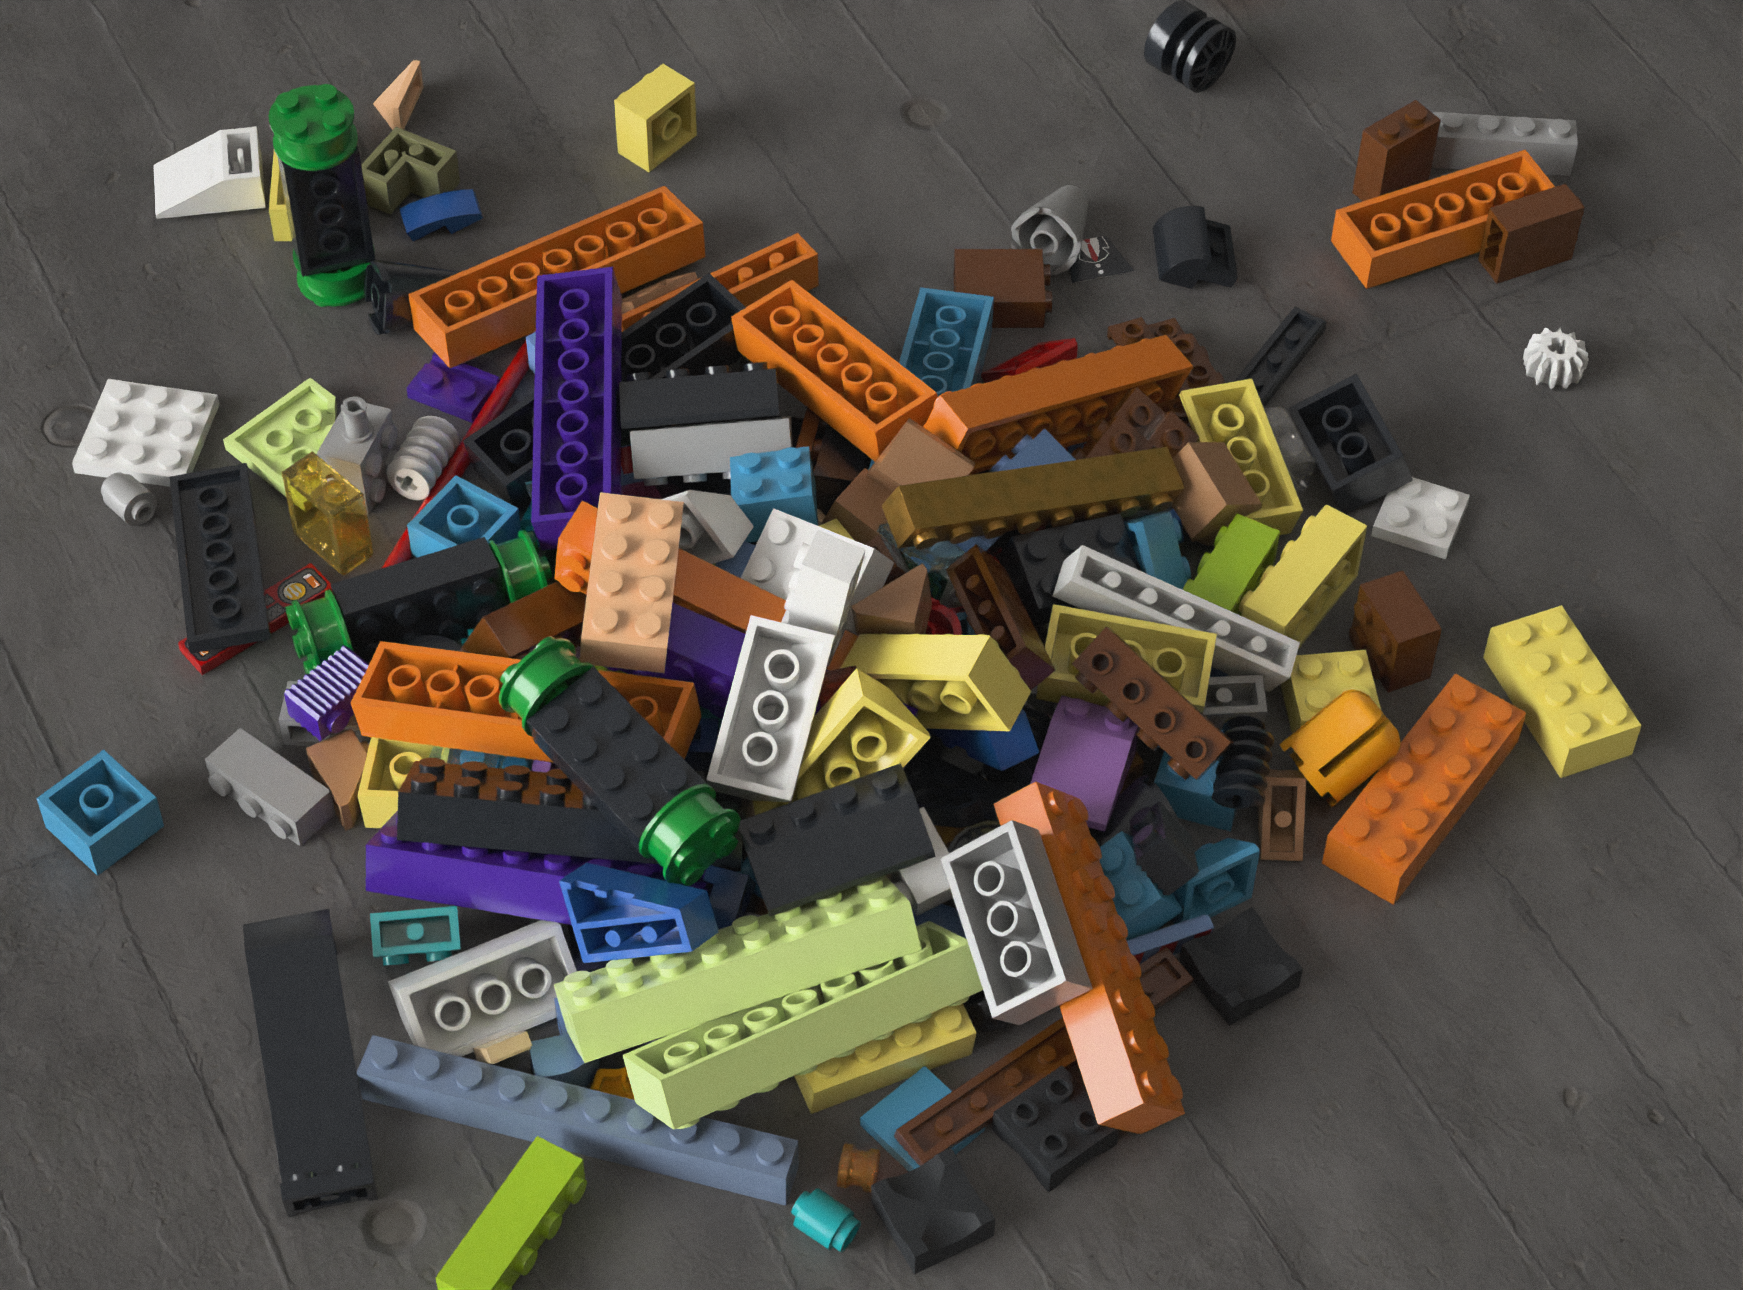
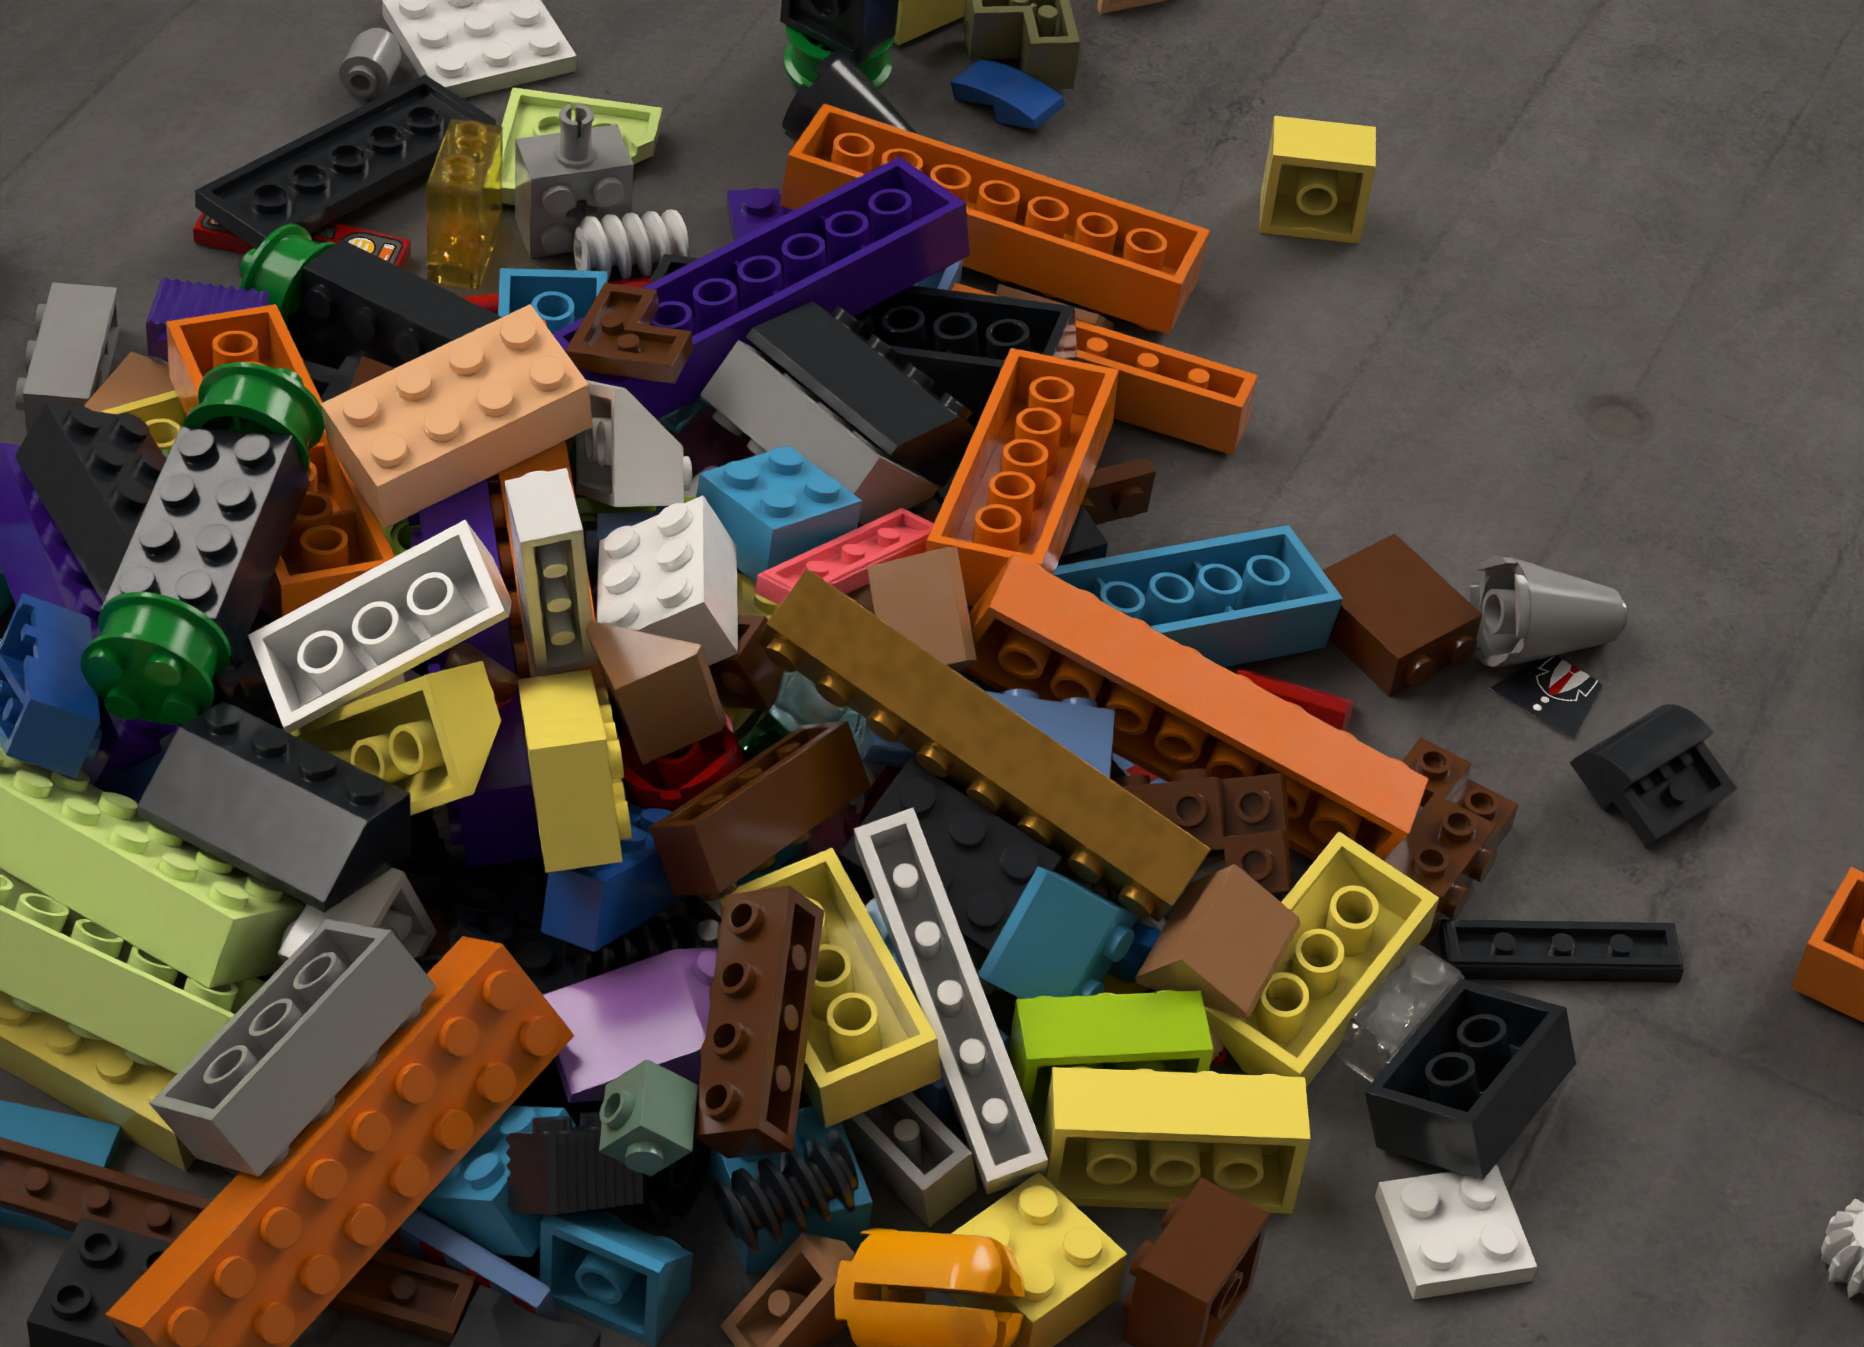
camera: 50 degrees right, 5 degrees down
(573, 482) = (621, 341): none -> reddish brown plate
(840, 481) = (846, 558): none -> coral tile
(1175, 791) = (648, 1118): none -> sand green brick

